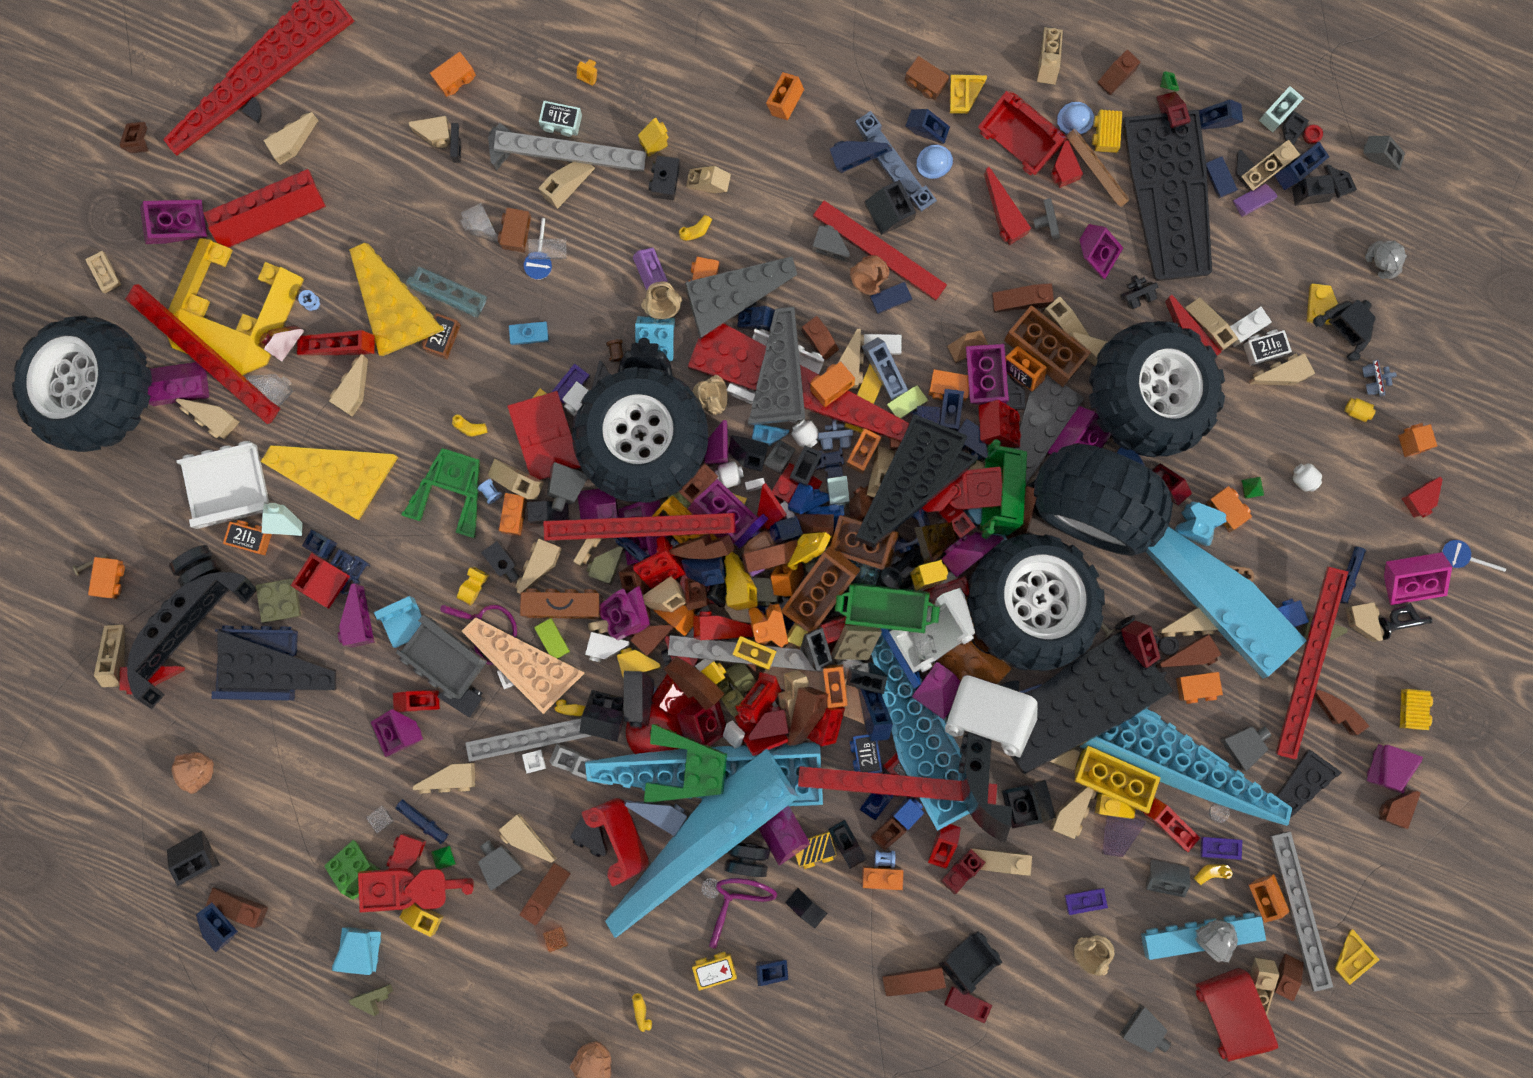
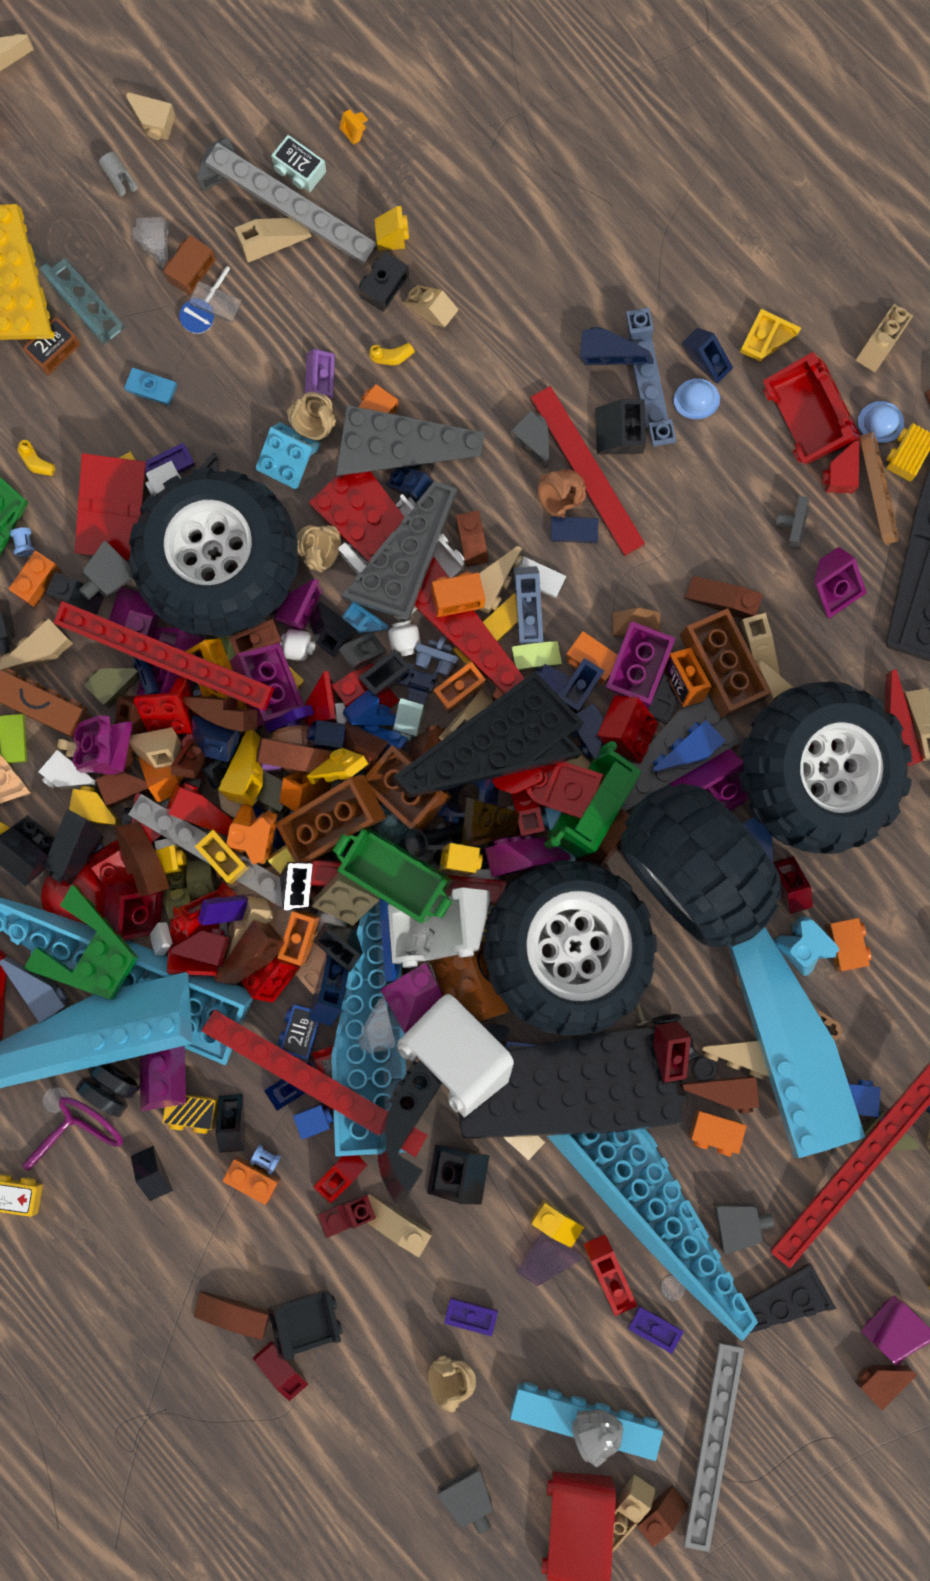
camera: 25 degrees right, 0 degrees up
(426, 185) = (117, 173): none -> light grey hinge
(453, 74) = (203, 63): orange brick -> none
(455, 147) = (168, 141): black tile -> none
(515, 480) = (56, 543): tan slope -> none
(584, 555) = (93, 659): tan plate -> none
(615, 350) = (237, 449): reddish brown bush -> none
(646, 356) = (267, 469): black torso -> none
(754, 484) = (318, 668): white tile -> none
(771, 972) = (75, 1227): dark blue slope -> none
(772, 691) = (223, 910): none -> dark purple tile
(785, 96) = (561, 249): orange brick -> none
(888, 833) = (281, 1133): copper slope -> none
(925, 726) = (377, 1030): none -> clear slope
(926, 78) = (731, 301): dark orange brick -> none
(1008, 217) = (751, 502): red slope -> none
(1056, 414) = (695, 748): none -> blue slope
(1072, 812) = (502, 1207): tan slope -> none
(1116, 779) = (569, 1194): yellow slope -> none
(1132, 296) = (871, 652): black hips -> none
(1168, 878) = (578, 1335): dark grey panel -> none
(1211, 871) = (634, 1351): yellow arm -> none
(1252, 487) = (887, 933): green slope -> none
(1269, 898) = (682, 1414): orange brick -> none
(1340, 712) = (866, 1238): copper slope -> none
(1354, 958) = (750, 1530): yellow wing -> none

